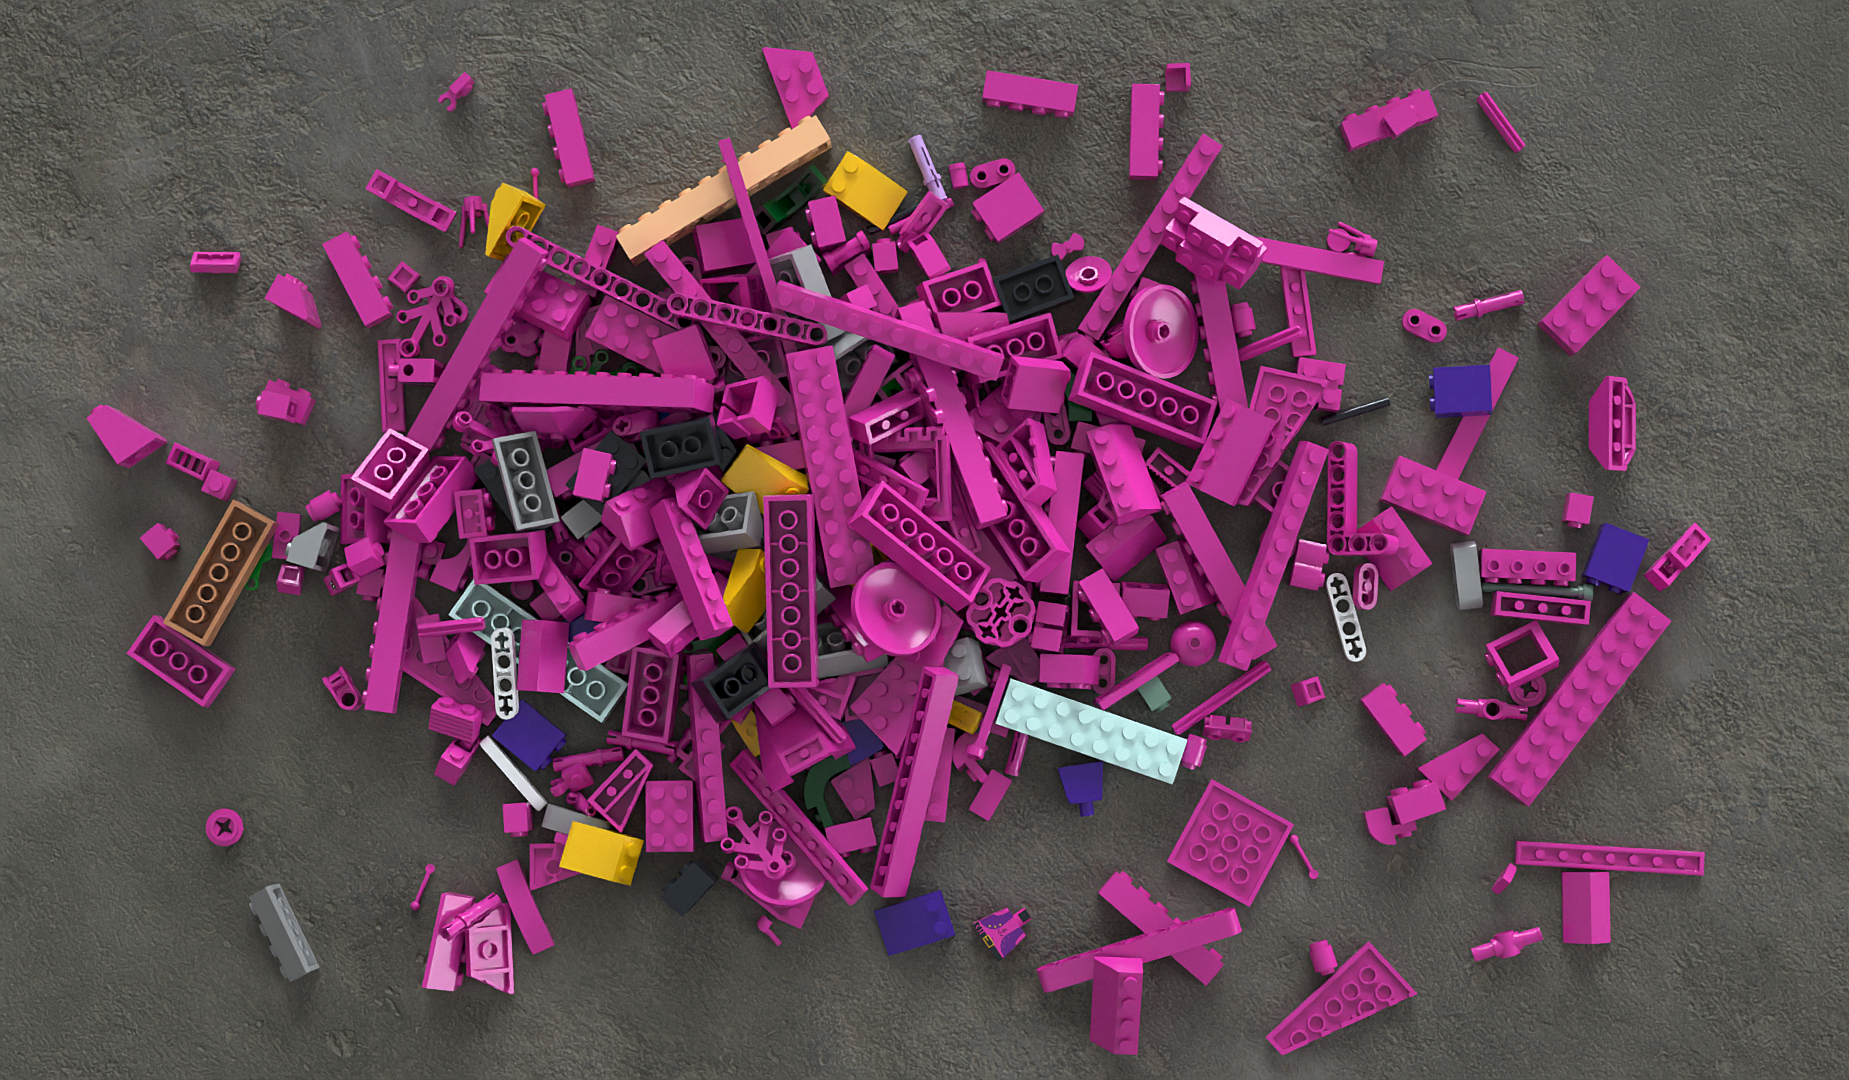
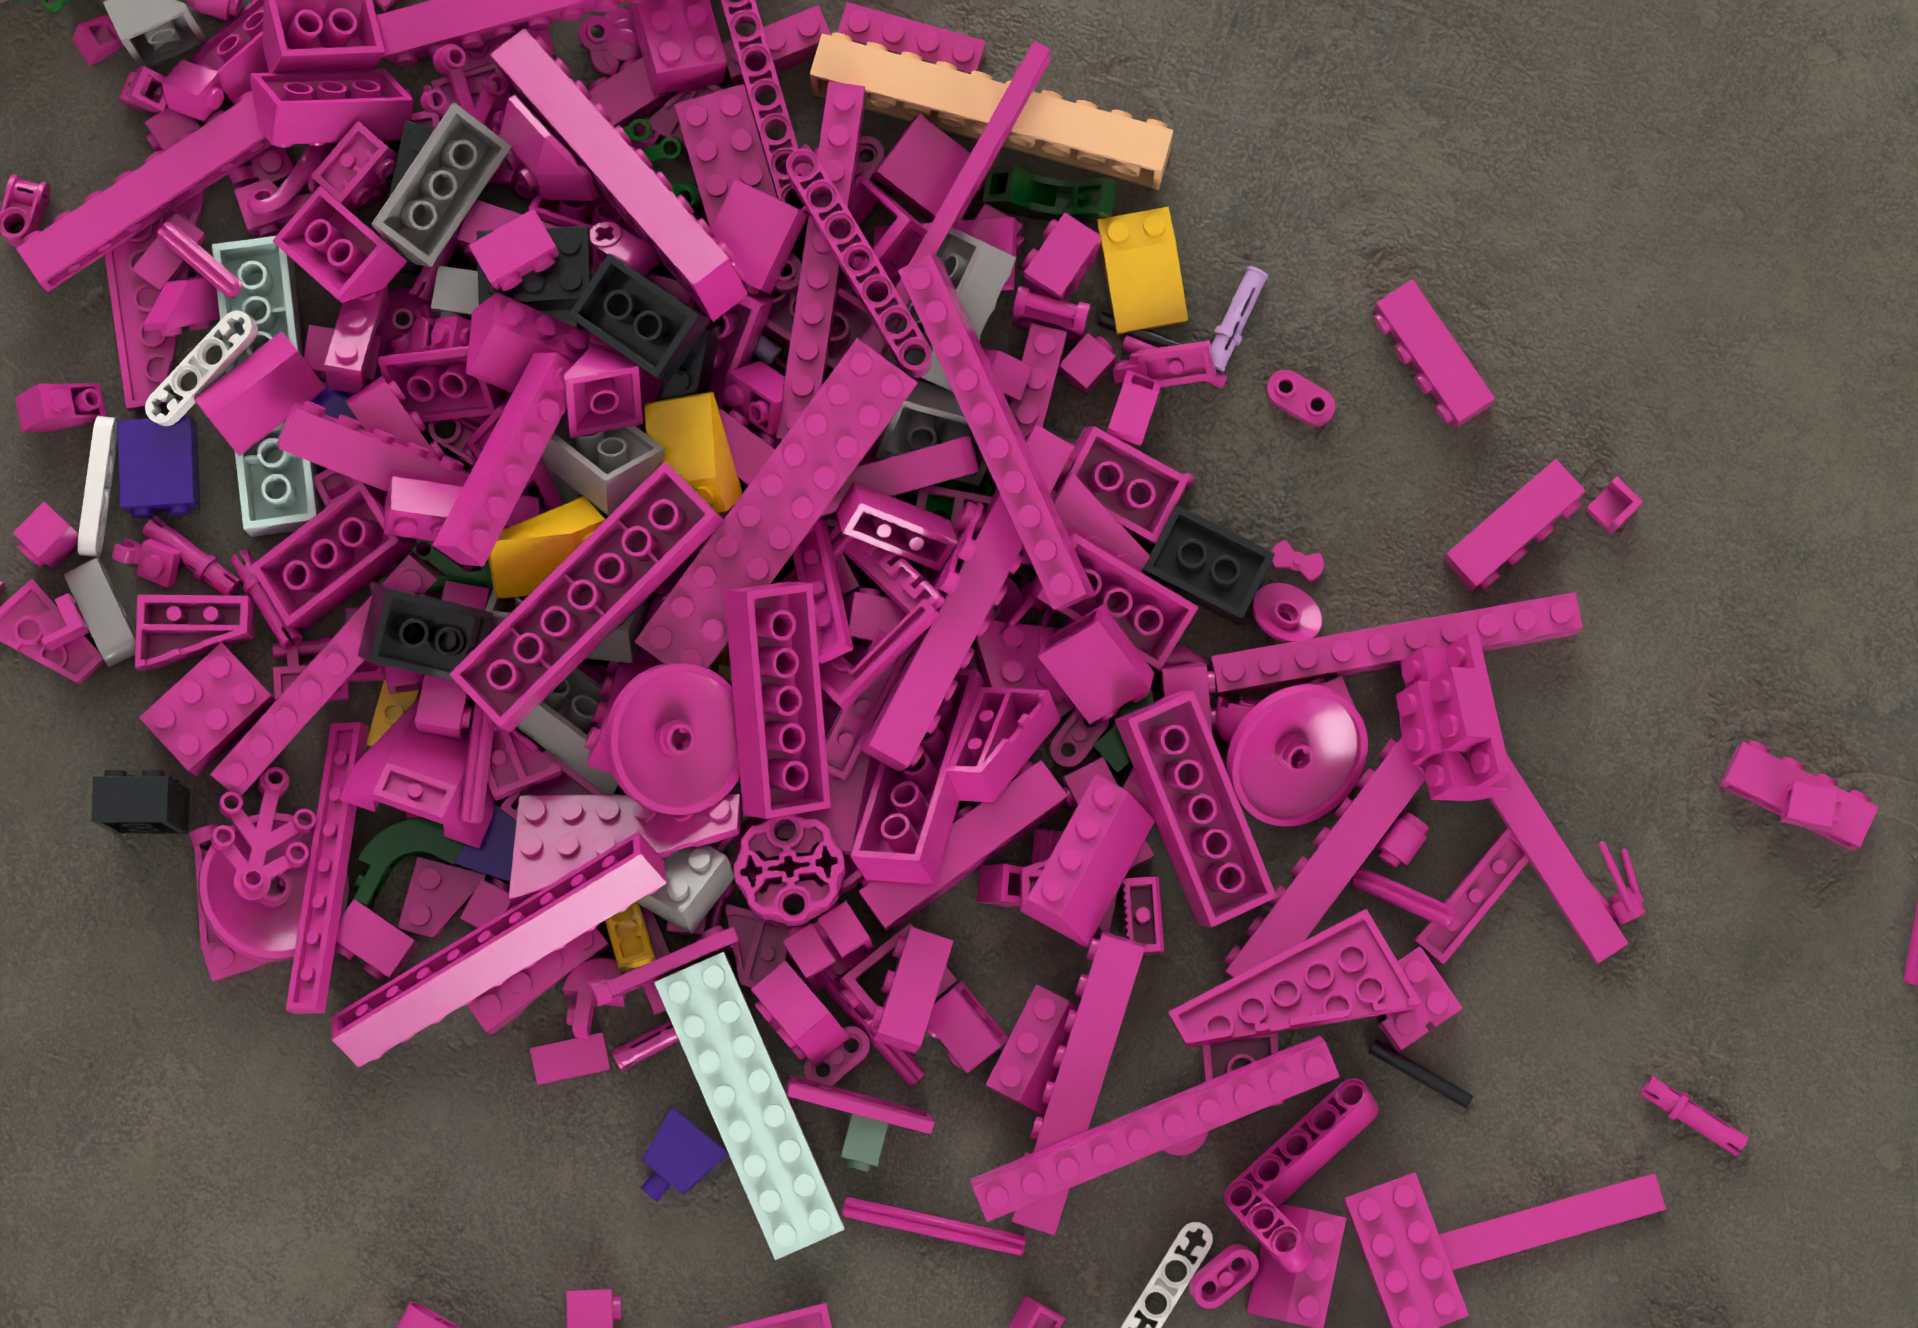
camera: 45 degrees right, 5 degrees down
(452, 541) = (269, 201): none -> dark pink plant
(455, 719) = (99, 364): dark pink brick -> none
(522, 589) = (322, 305): dark pink tile -> none
(580, 803) = (133, 586): dark pink arm -> none
(601, 853) = (91, 667): yellow slope -> none
(654, 195) = (911, 36): none -> dark pink brick
(754, 405) = (768, 359): dark pink piece -> none
(764, 924) = (178, 934): dark pink hand -> none
(796, 81) = (1197, 81): dark pink wing -> none
(914, 922) = (340, 1108): dark purple slope -> none
(958, 175) = (1261, 361): dark pink piece -> none
(1002, 930) = (421, 1219): torso -> none
(1007, 209) = (1274, 450): dark pink brick -> none
(1125, 545) = (1009, 947): dark pink slope -> none
(1193, 643) = (967, 1133): dark pink cylinder -> none
(1193, 752) = (838, 1251): dark pink brick -> none
(1230, 452) = (1229, 965): dark pink slope -> none
(1237, 731) = (891, 1255): dark pink hinge -> none
(1308, 565) = (1185, 1184): dark pink brick -> none
(1337, 243) = (1597, 870): dark pink tile -> none
(1424, 326) = (1594, 1063): dark pink plate -> none
(1461, 391) = (1561, 1176): dark purple brick -> none
(1588, 305) = (1807, 1235): dark pink brick -> none

